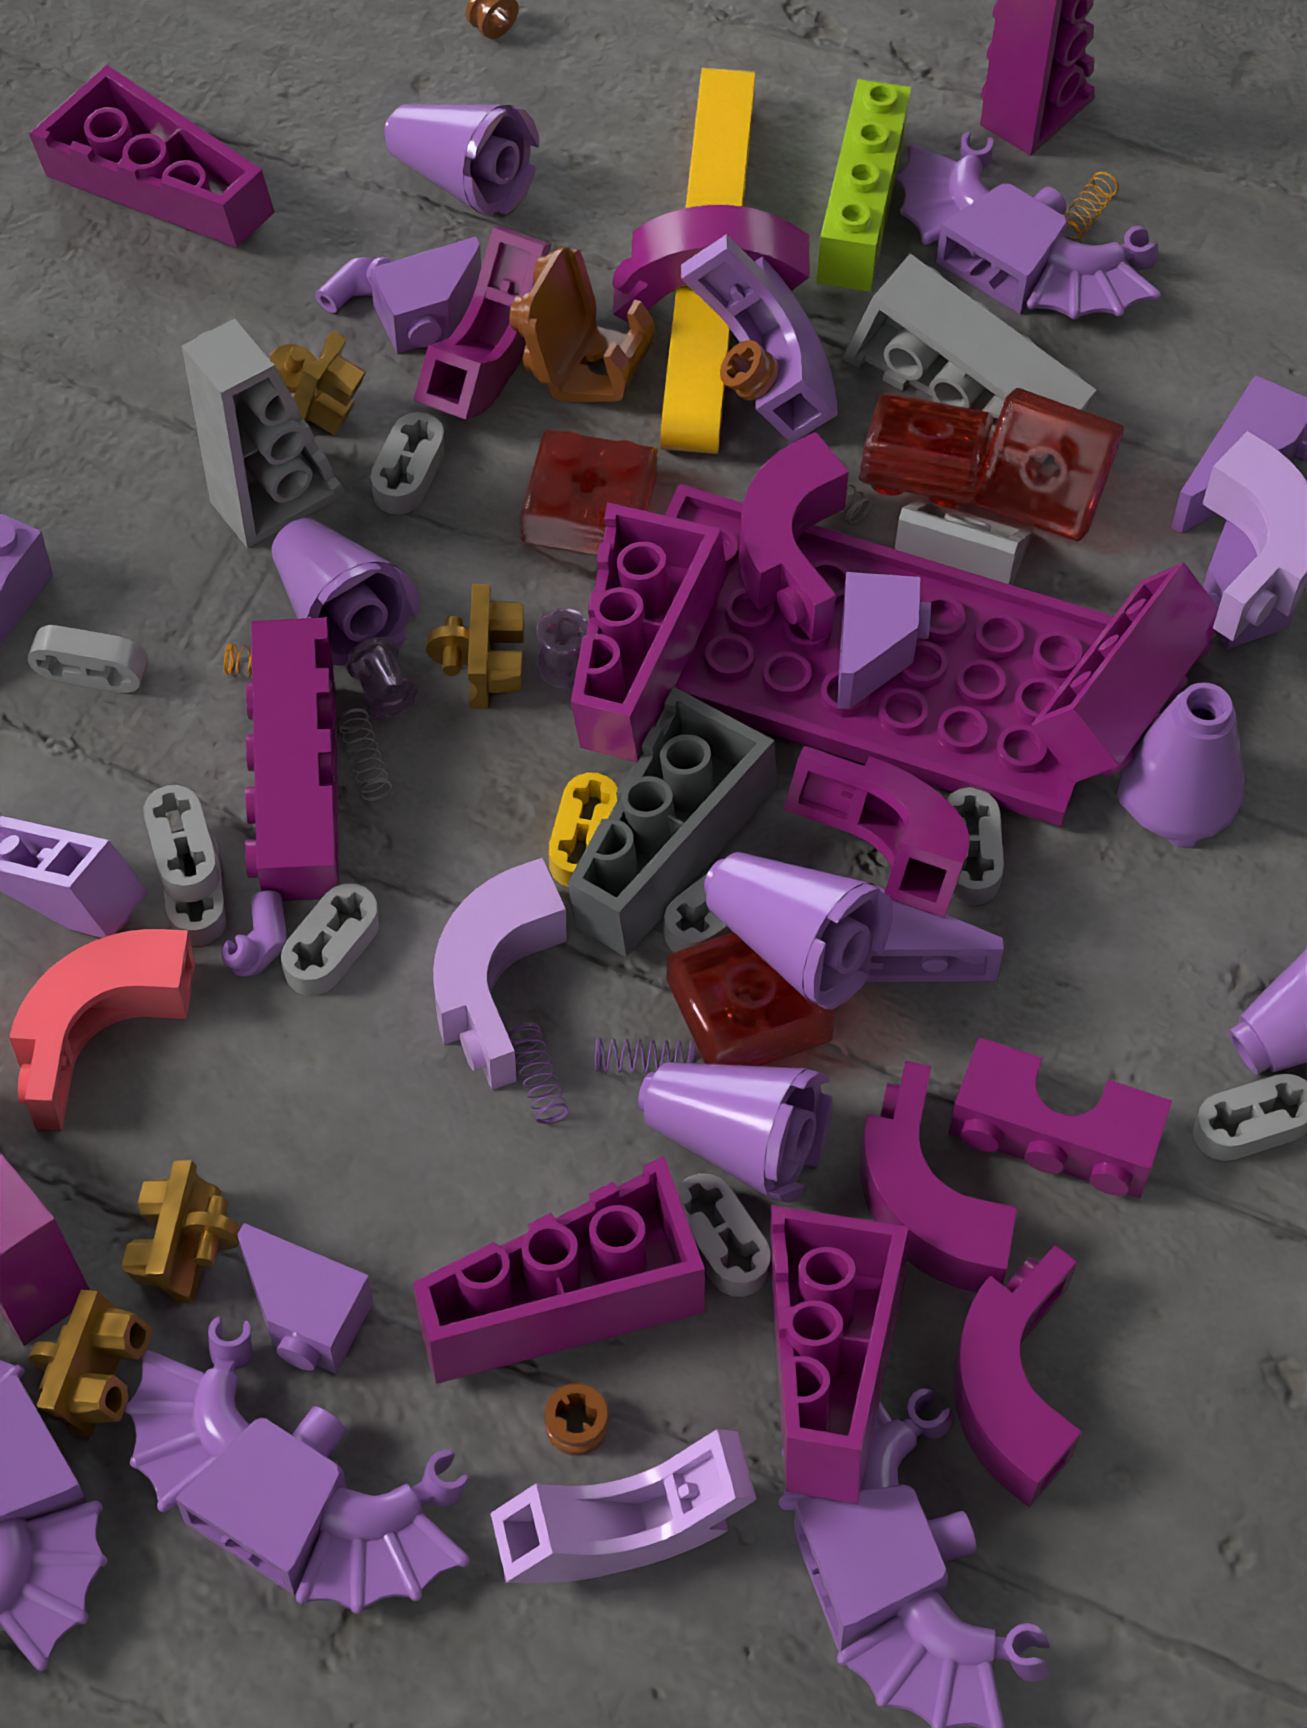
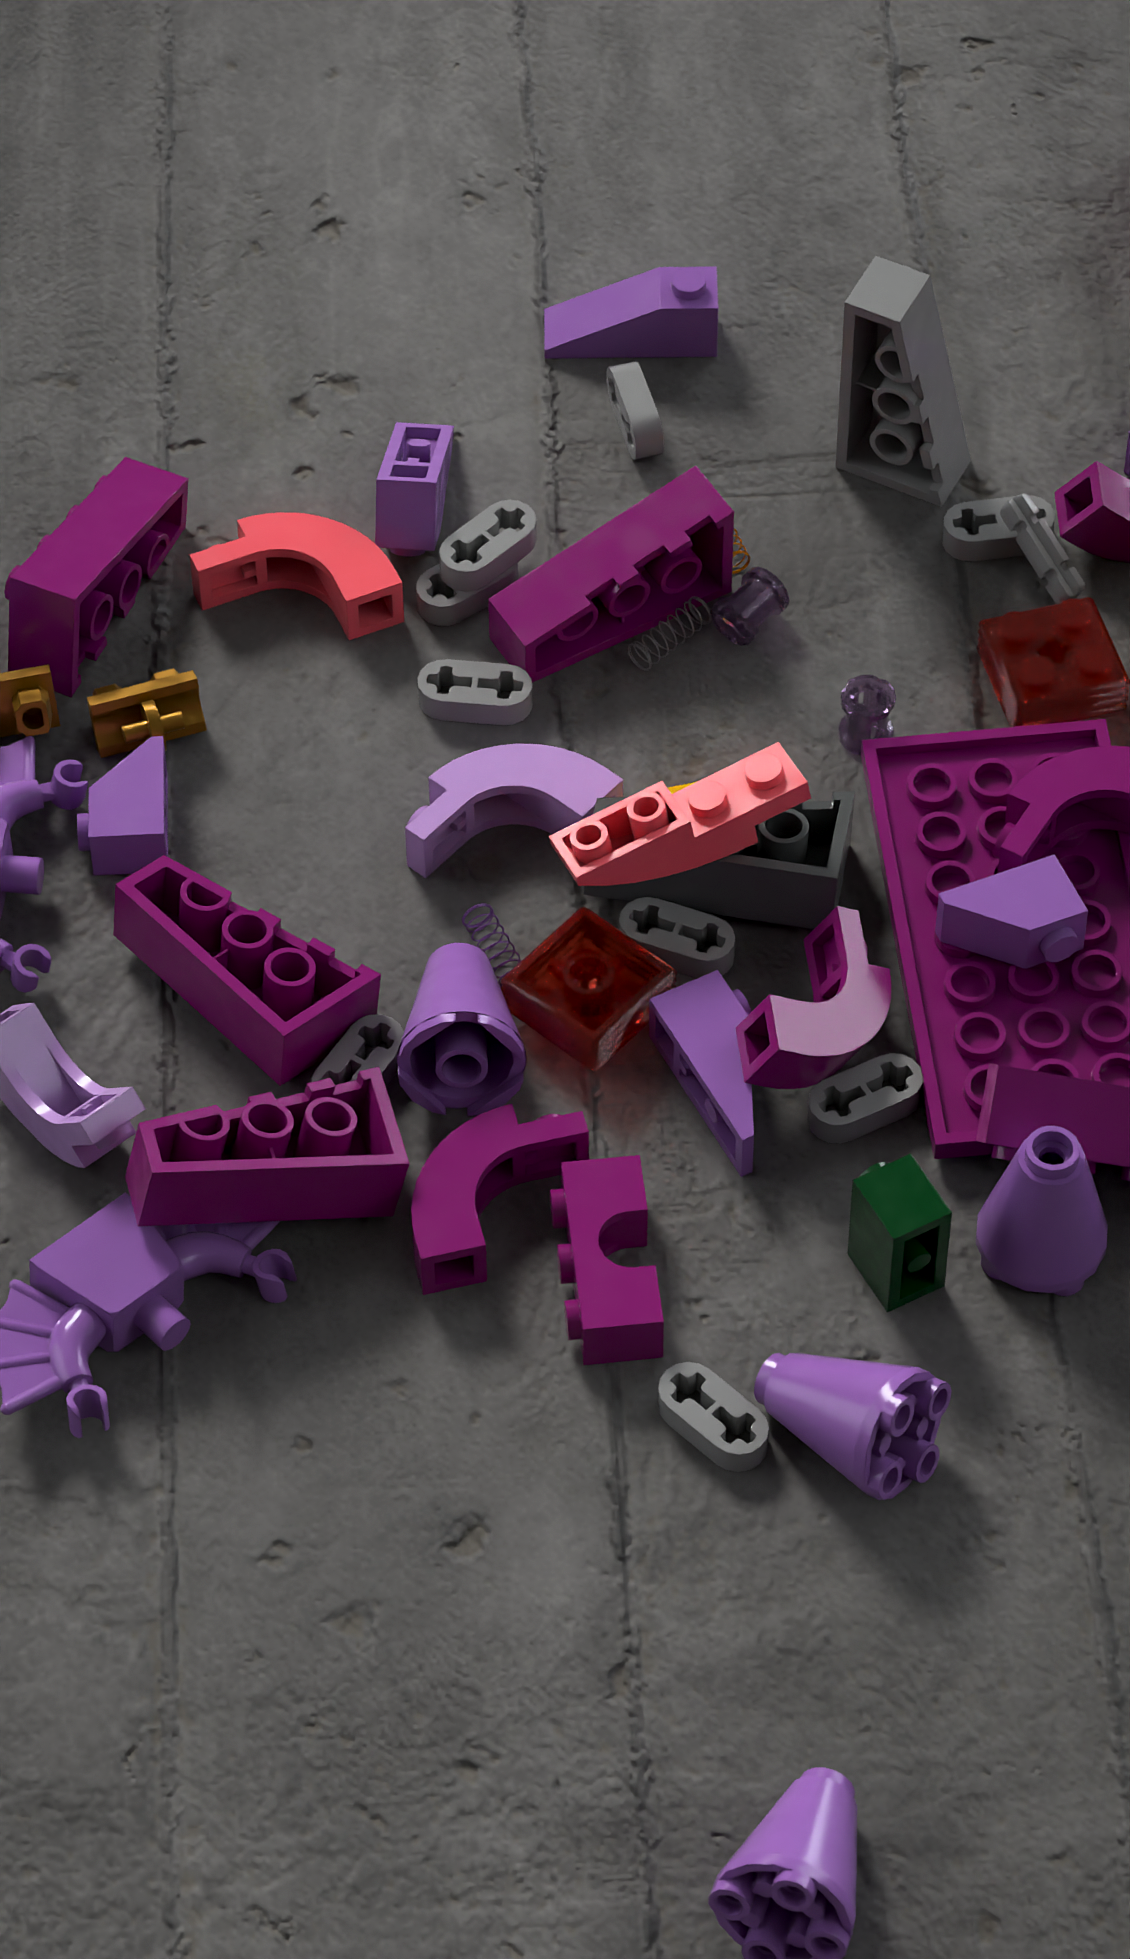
camera: 65 degrees right, 5 degrees down
(263, 944) = (425, 647): medium lavender arm -> none
(320, 386) = (1016, 416): pearl gold hips -> none
(344, 583) = (806, 532): medium lavender cone -> none
(465, 439) = (1042, 548): none -> light grey axle
(487, 669) = (826, 654): pearl gold hips -> none
(553, 1104) = (410, 907): medium lavender piece -> none
(596, 1410) = (139, 1057): dark orange bush -> none
(643, 621) = (904, 738): magenta wedge -> none
(665, 818) = (676, 832): none -> coral slope
(802, 922) = (645, 970): medium lavender cone -> none
(998, 1410) = (334, 1298): magenta arch -> none
(1162, 877) = (898, 1232): none -> dark green brick

